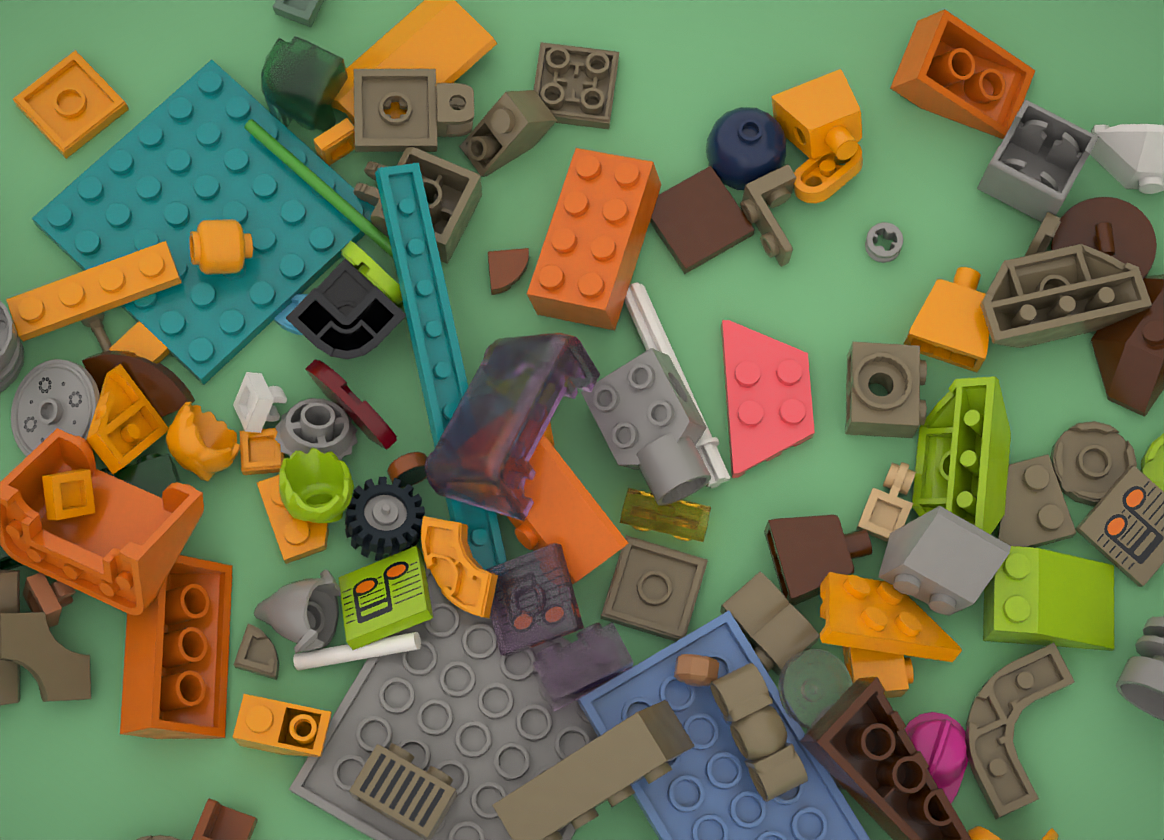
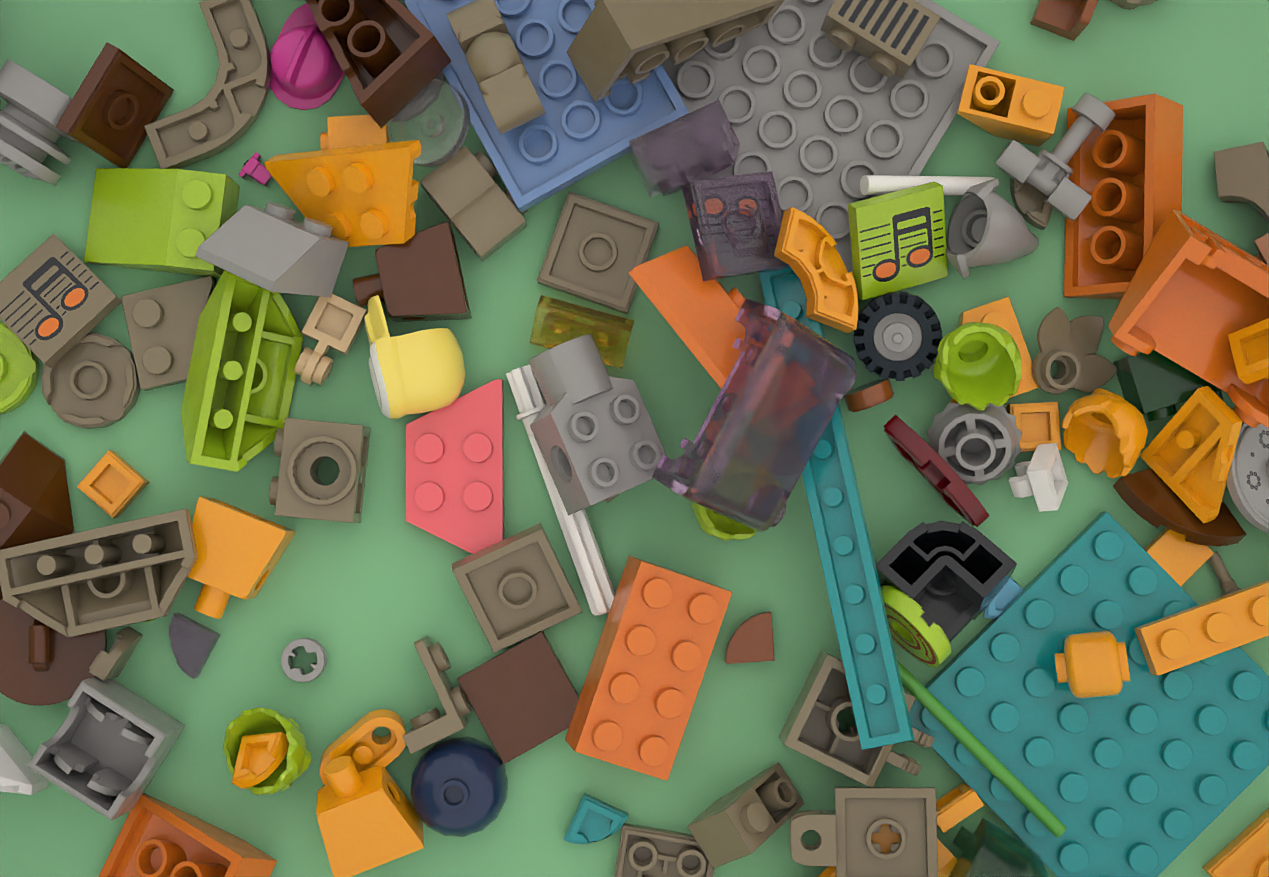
camera: 175 degrees left, 15 degrees up
(226, 516) = (1073, 349): none -> dark tan plate
(244, 668) = (1050, 170): none -> light grey bar
(632, 128) = (594, 821): none -> teal tile
(696, 669) = (559, 133): medium nougat tile -> none
(709, 299) = (516, 587): none -> dark tan plate
(811, 471) = (412, 370): none -> light yellow piece
(906, 165) = (265, 721): none -> lime hair
(912, 157) = (259, 758): none -> light orange tile
(970, 652) = (256, 170): none -> dark pink piece
(980, 253) = (191, 643): none -> tile
(1062, 378) = (113, 484): none -> light orange tile
(1101, 690) = (115, 106): none -> reddish brown tile

